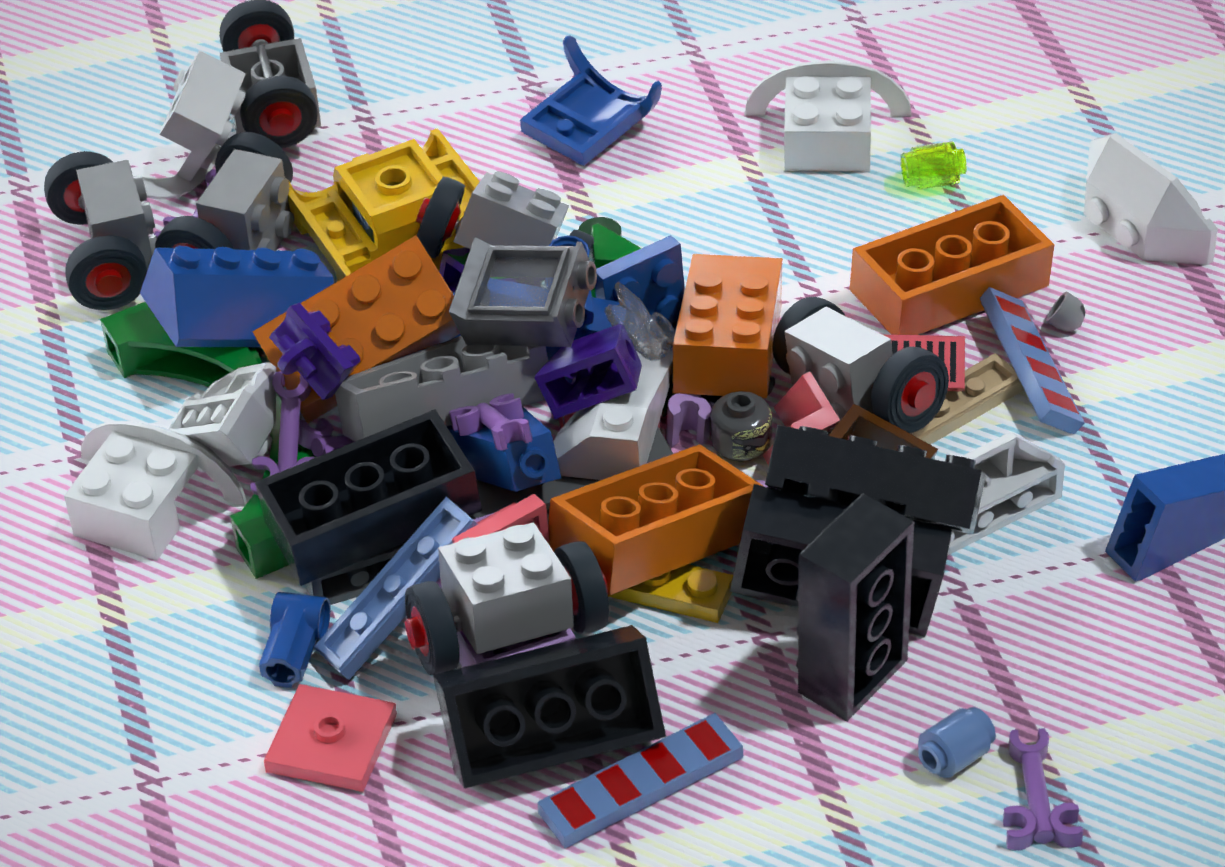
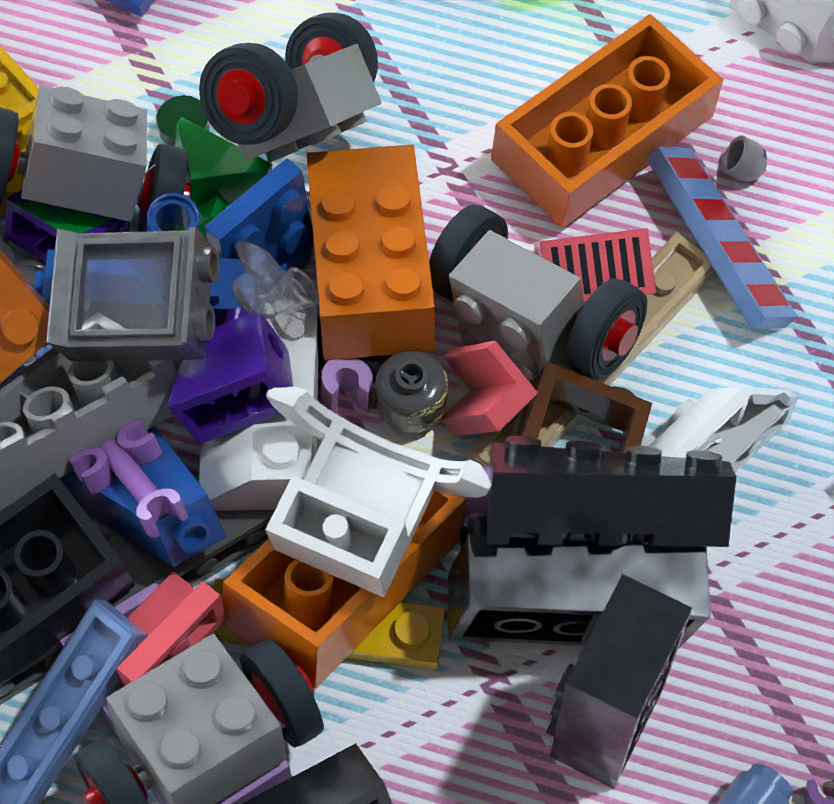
camera: 15 degrees left, 20 degrees up
(671, 452) = (358, 496): none -> white piece
(696, 208) = (293, 102): none -> brick

